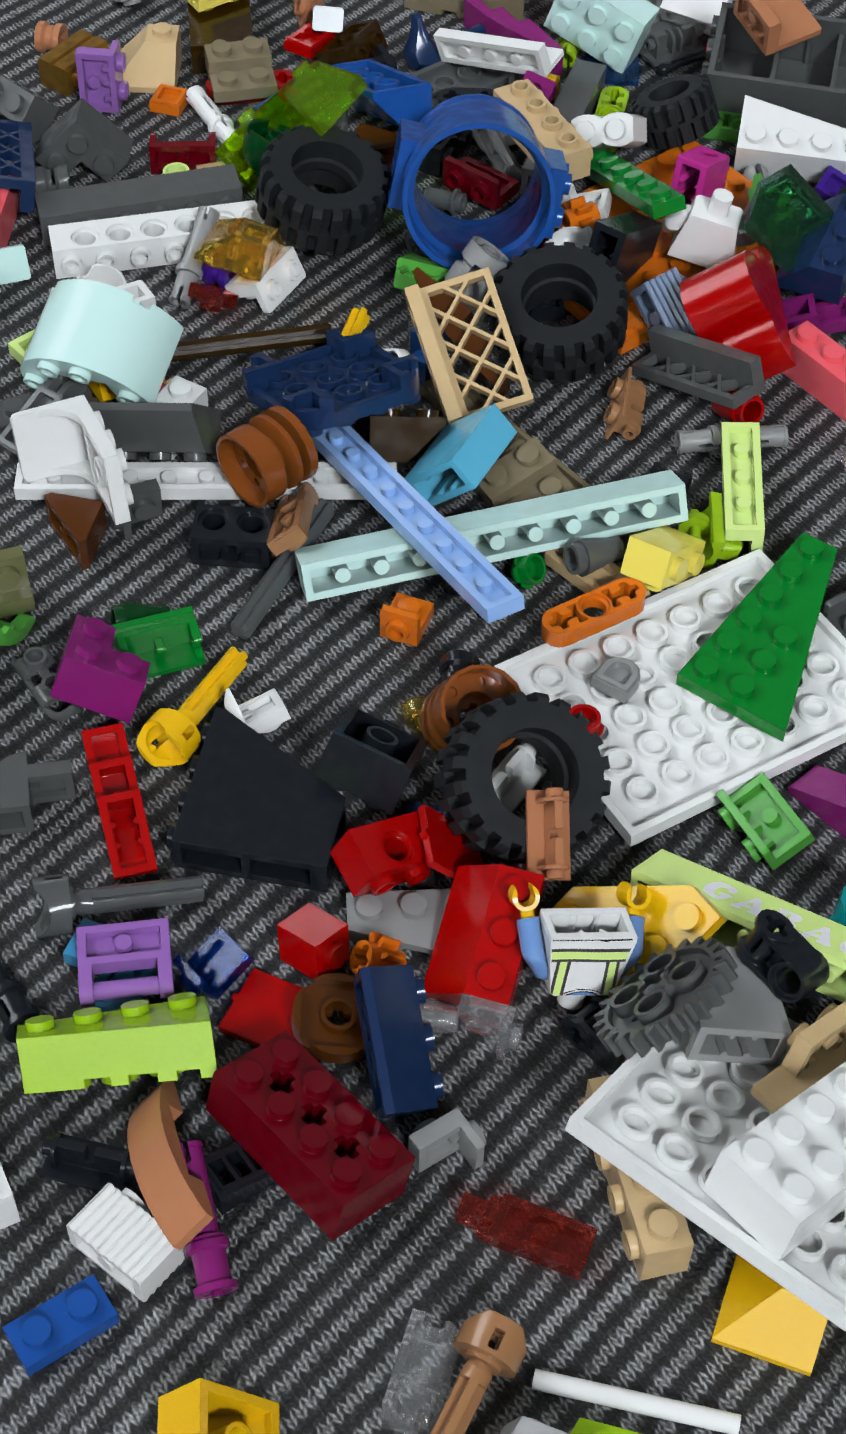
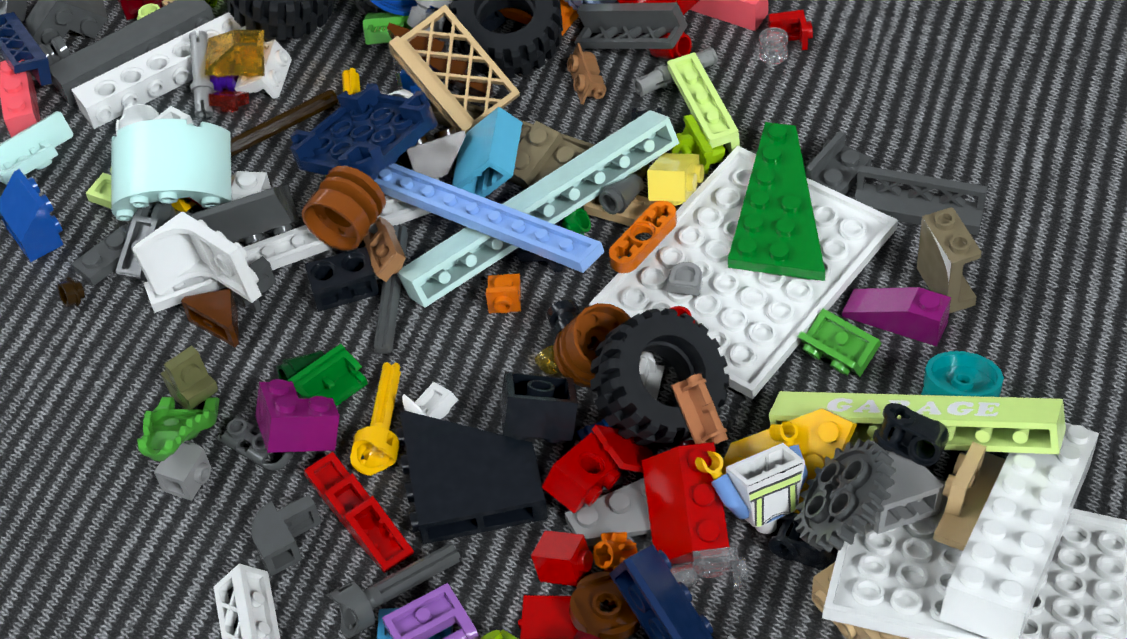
camera: 15 degrees left, 0 degrees up
(214, 965) = (495, 604): clear blue bracket -> none

